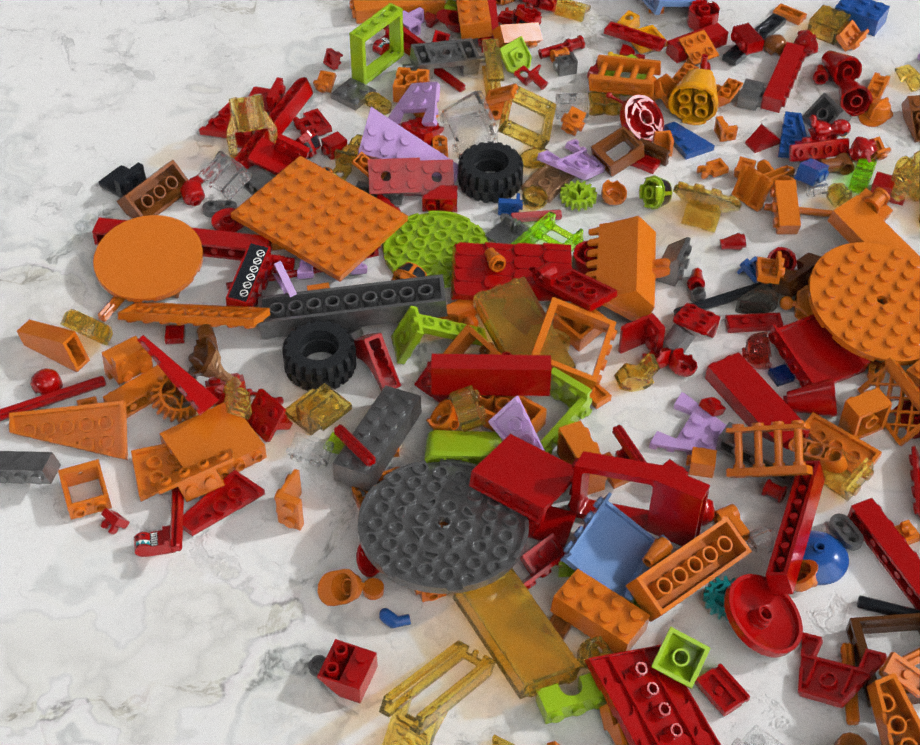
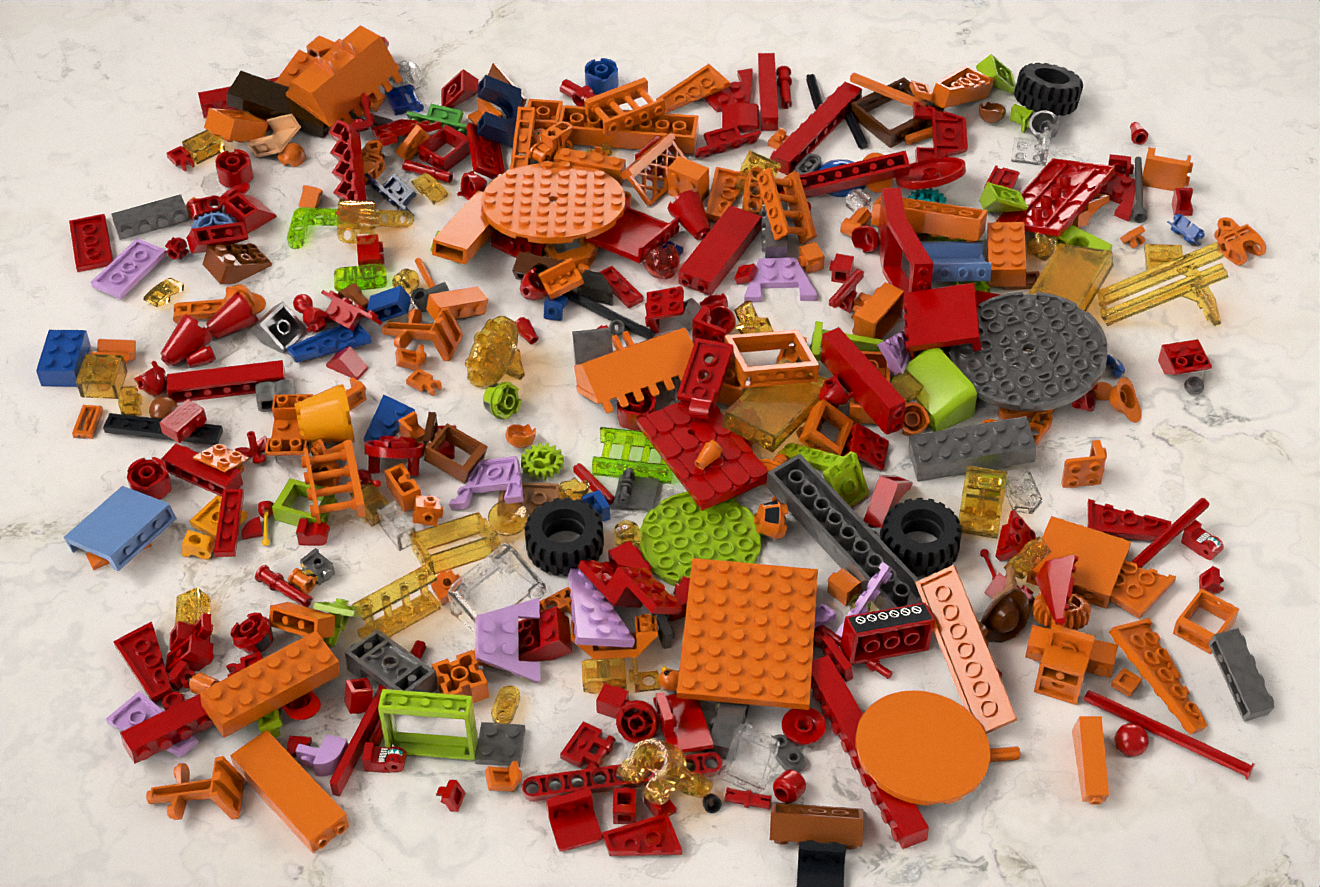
camera: 120 degrees left, 0 degrees up
(87, 326) = (1058, 726): clear yellow gear -> none
(198, 478) = (1126, 537): orange bracket -> none
(355, 445) = (1011, 434): red axle -> none
(468, 206) = (627, 531): none -> clear yellow head
(501, 94) = (451, 579): orange tile -> none
(533, 75) = (361, 583): red bracket -> none
(603, 116) = (402, 486): none -> orange brick
(658, 551) = (933, 235): orange cone -> none
(791, 28) = (130, 401): none -> clear yellow brick
(809, 198) = (420, 295): none -> dark grey piece
(862, 148) = (331, 278): red helmet -> none
(877, 201) = (424, 242): orange piece -> none
(881, 152) = (312, 280): orange bracket -> none

